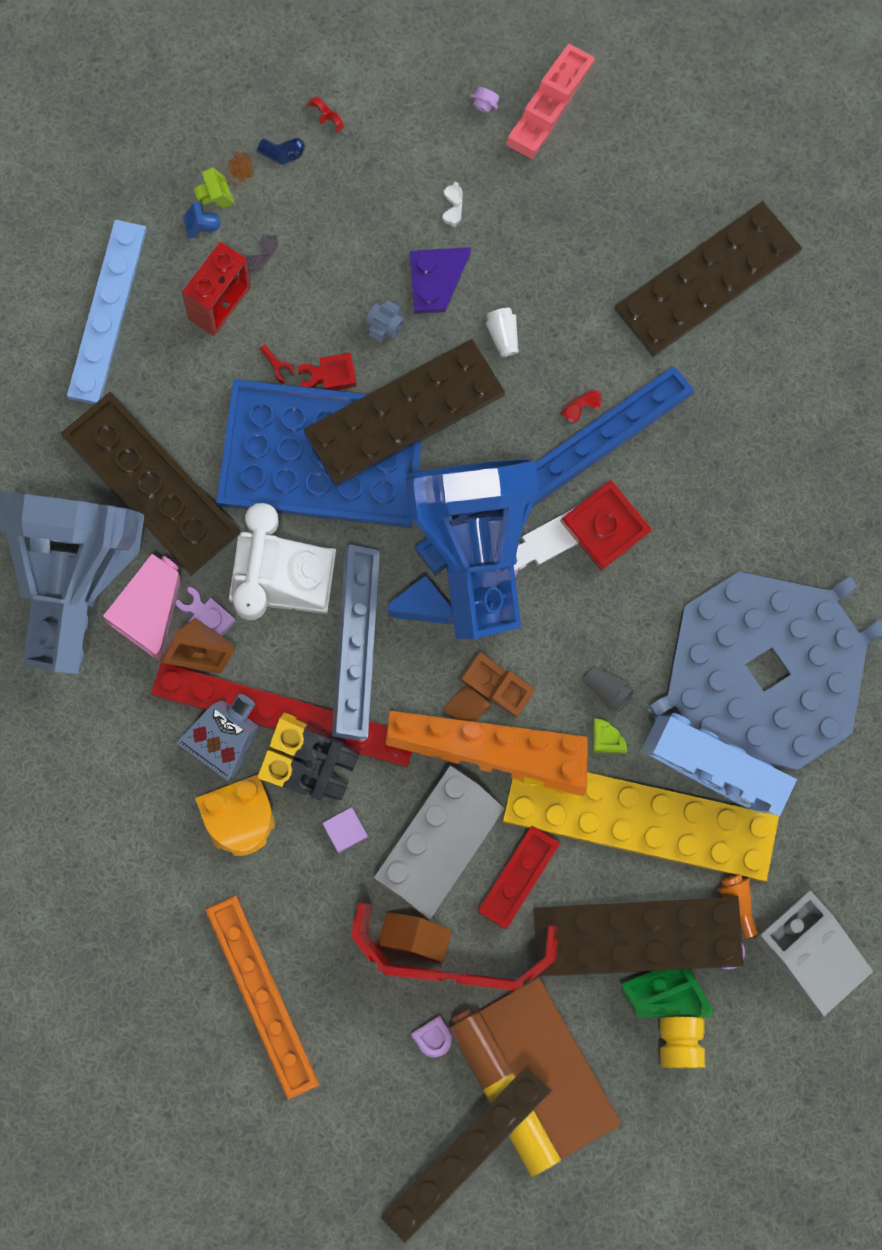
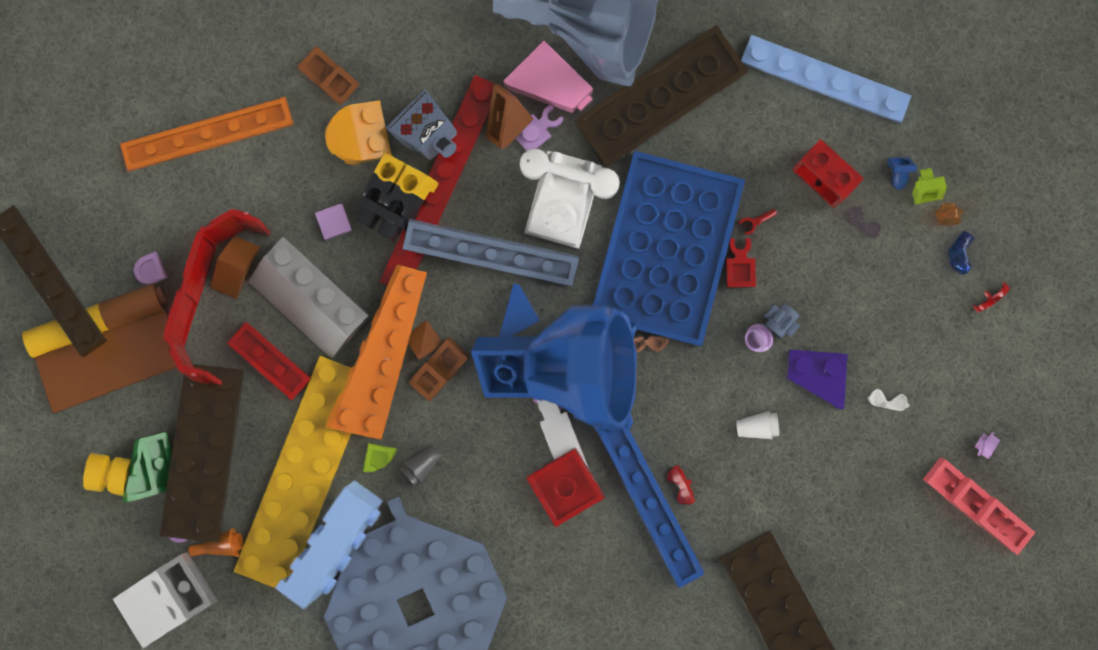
camera: 105 degrees right, 10 degrees up
(173, 863) = (328, 75): none -> dark orange slope
(403, 412) = (692, 324): dark brown plate -> none
(406, 343) = (758, 338): none -> lavender plate
(429, 454) = (655, 343): none -> nougat piece

